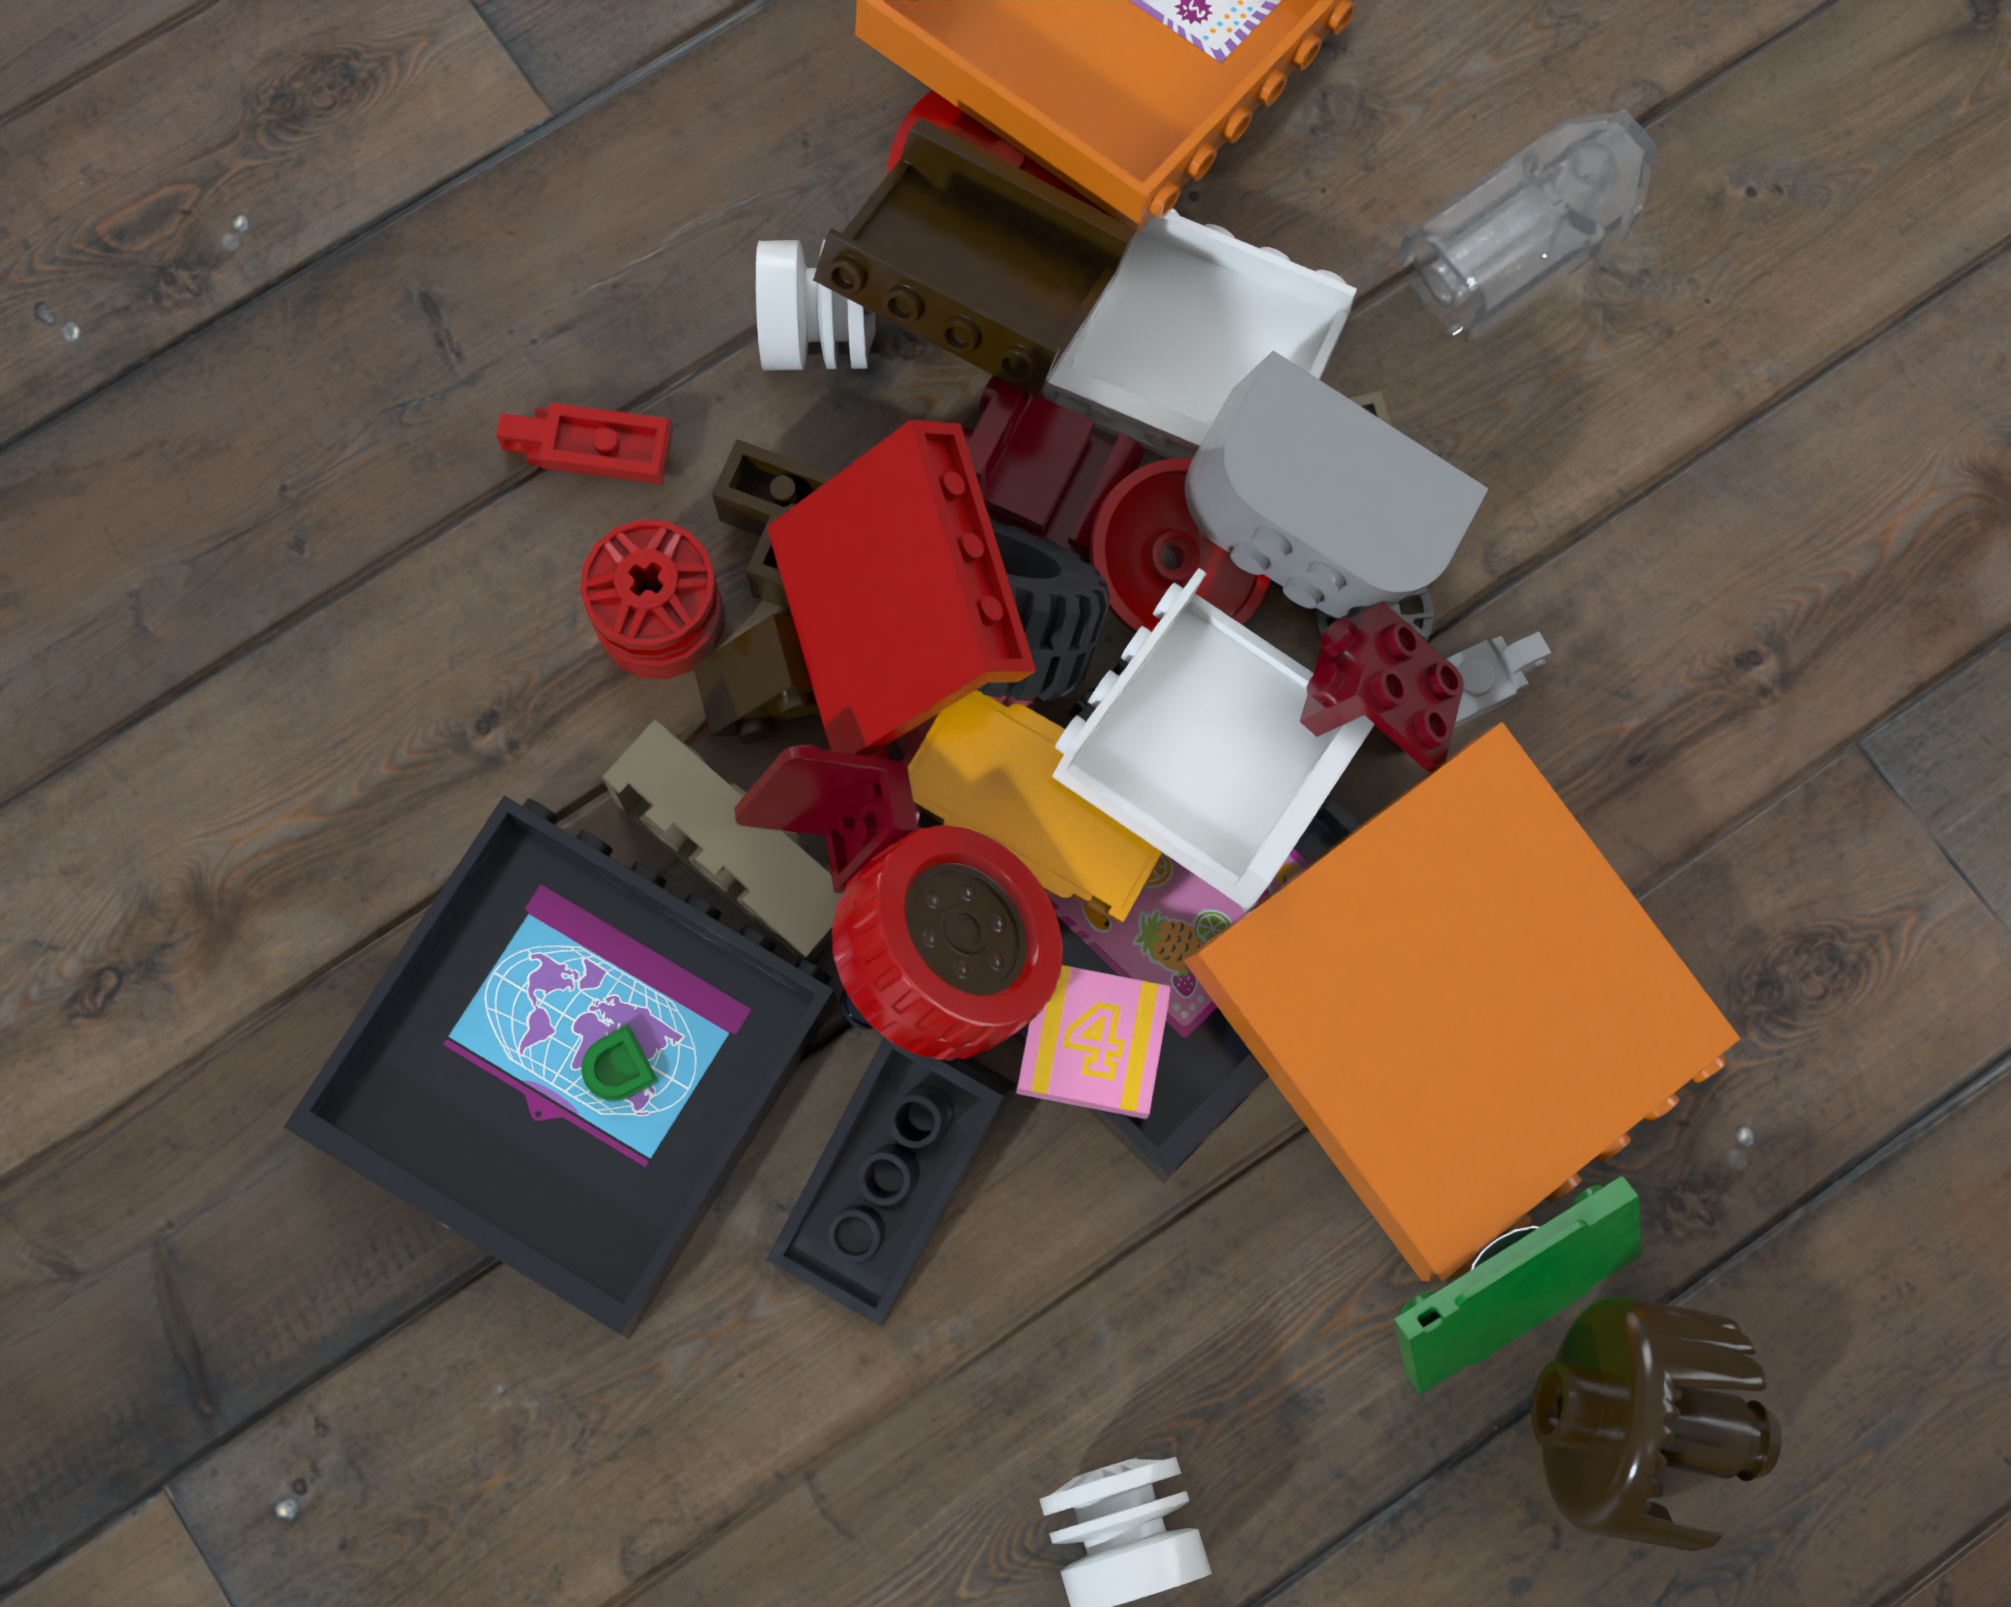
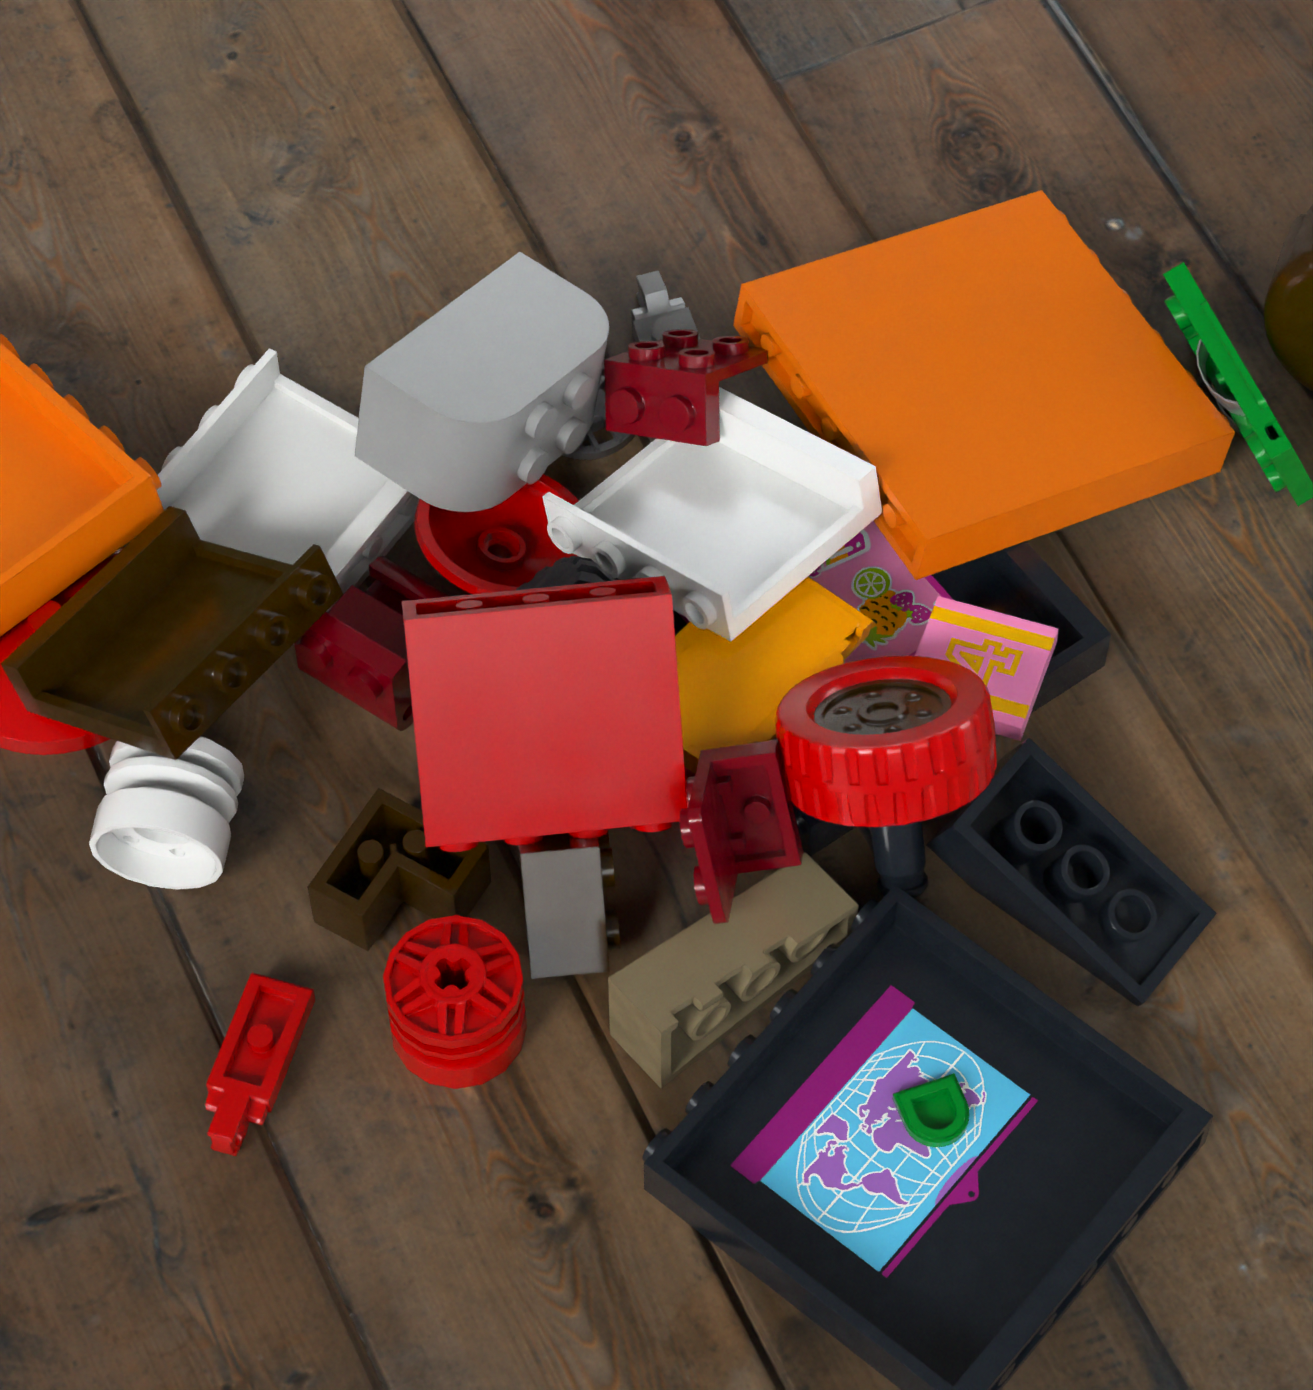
camera: 80 degrees left, 15 degrees down
(1531, 223) = (239, 204): clear brick -> none

